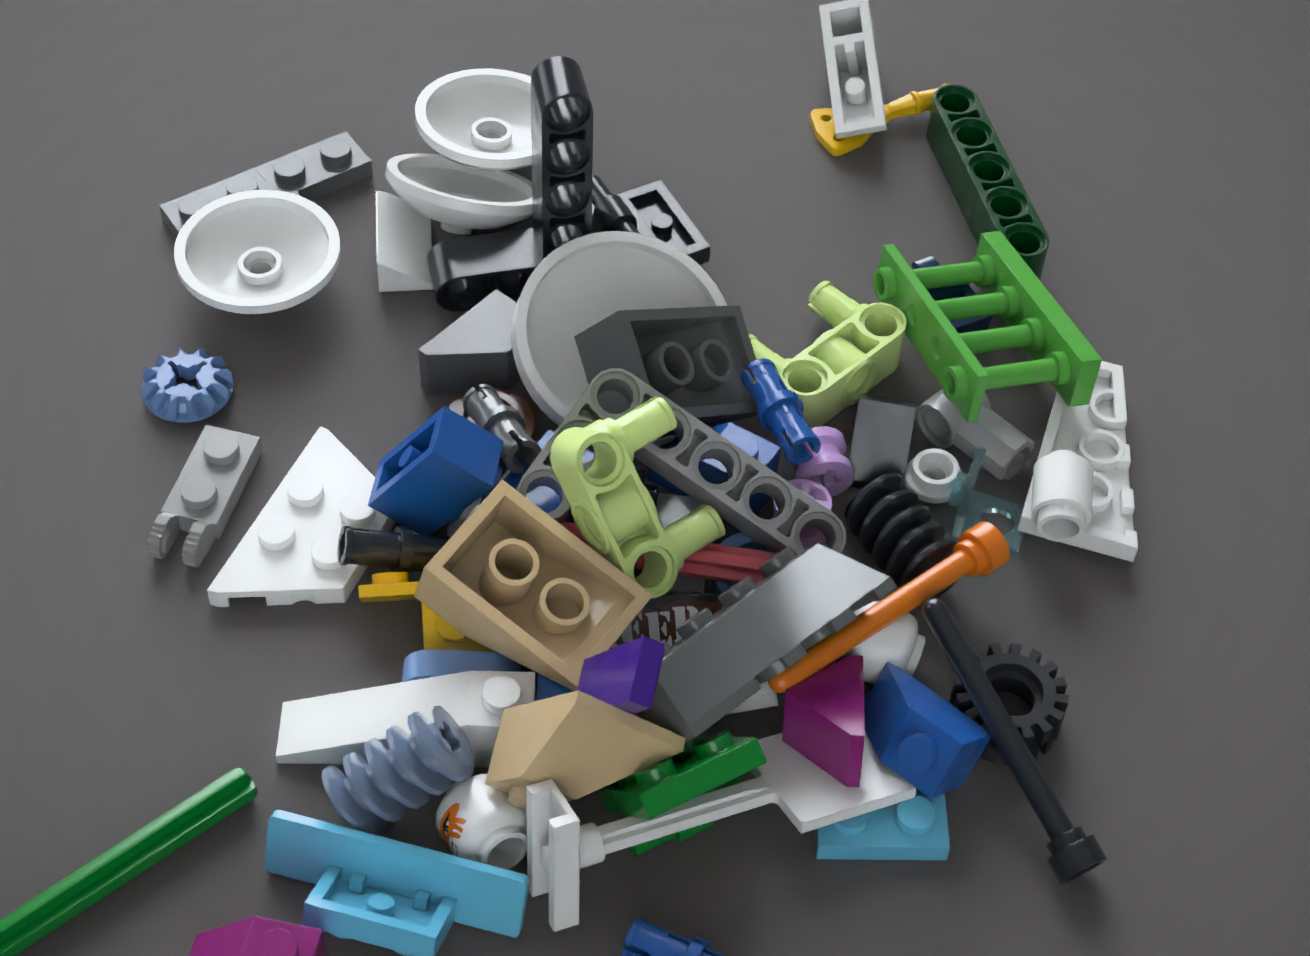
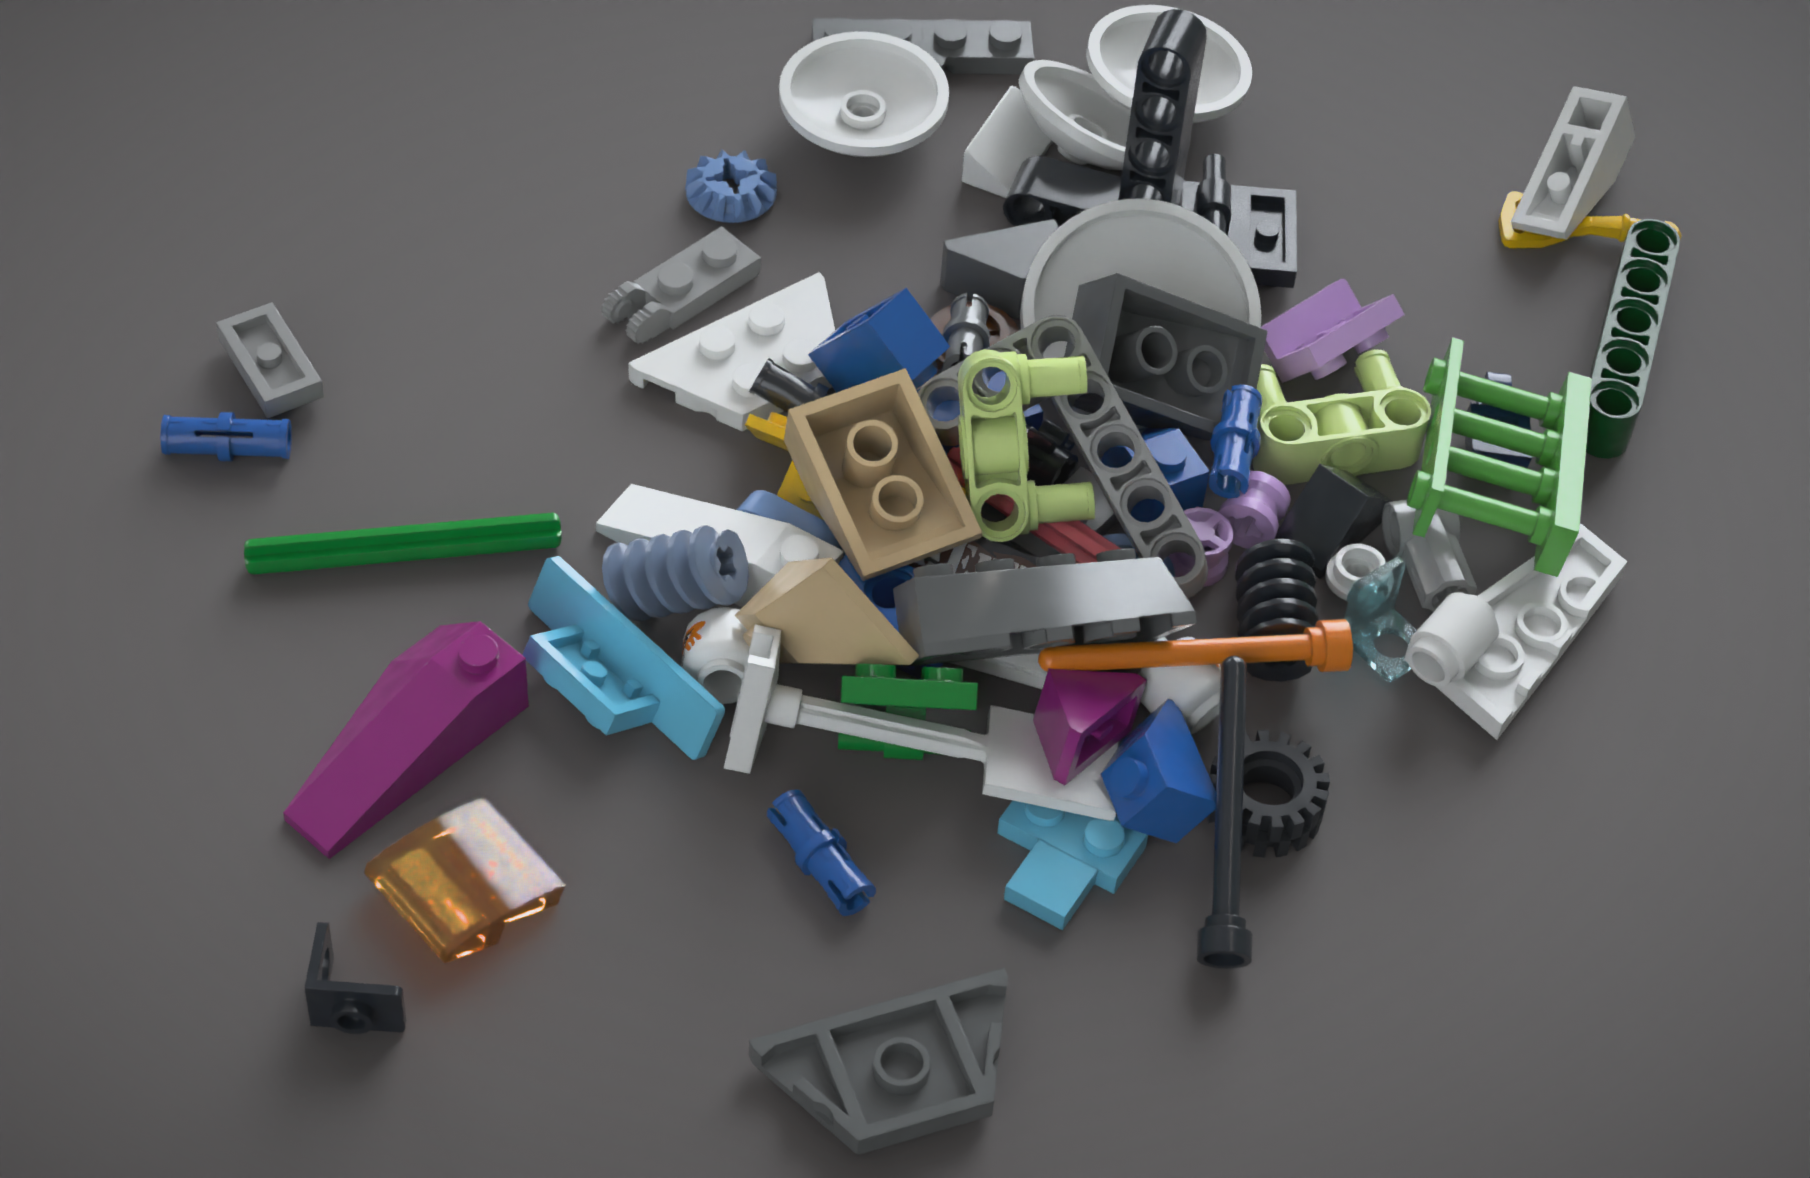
camera: 30 degrees right, 0 degrees up
(624, 674) = (893, 572): dark purple tile -> none
(773, 284) = (1323, 328): none -> lavender bracket
(898, 882) = (1050, 884): none -> medium azure tile

